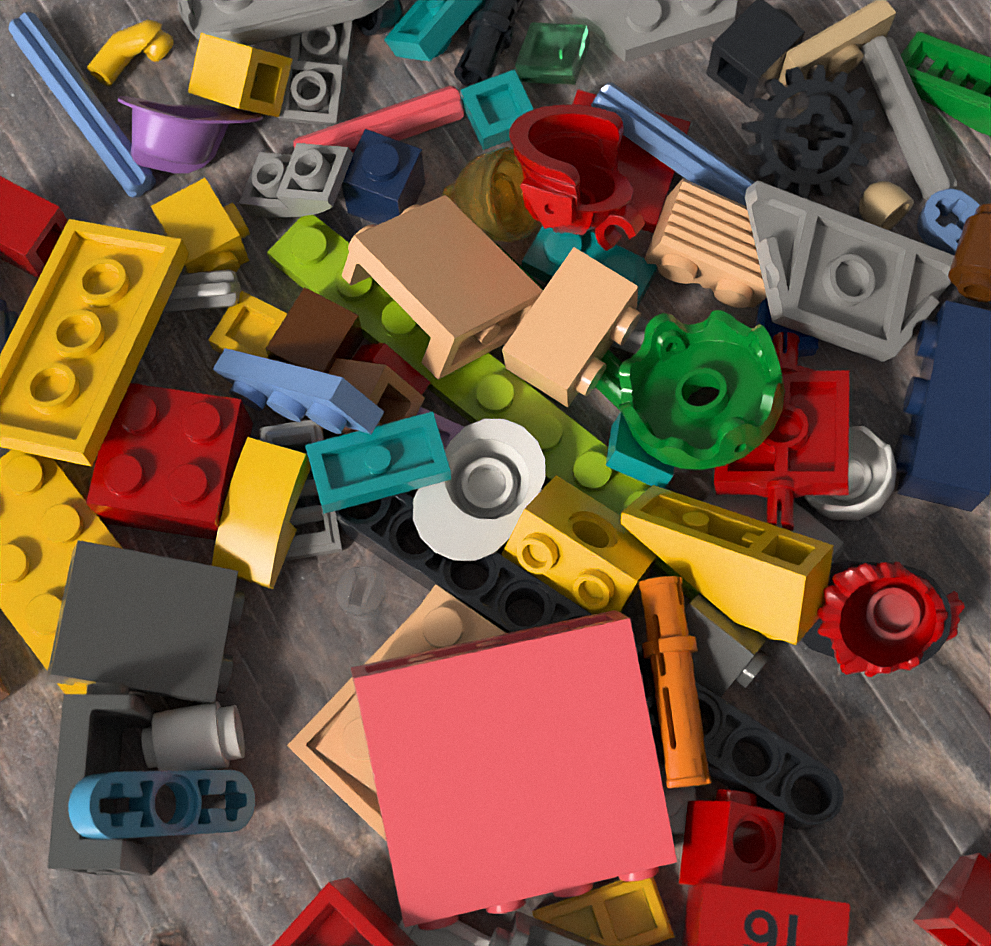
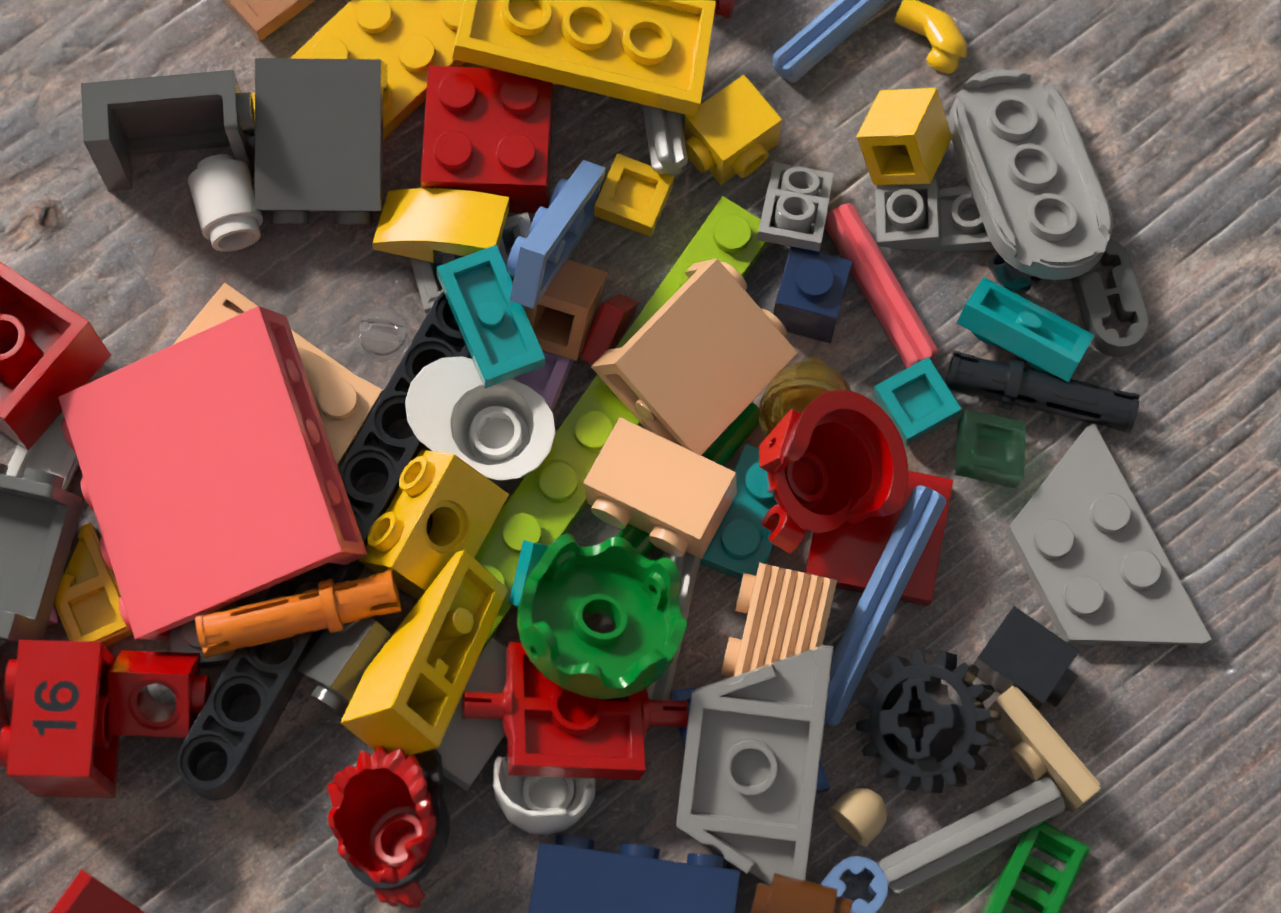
camera: 80 degrees right, 0 degrees up
(142, 790) = (161, 152): dark azure beam -> none
(179, 135) = (839, 84): medium lavender piece -> none
(316, 334) = (629, 249): reddish brown brick -> none

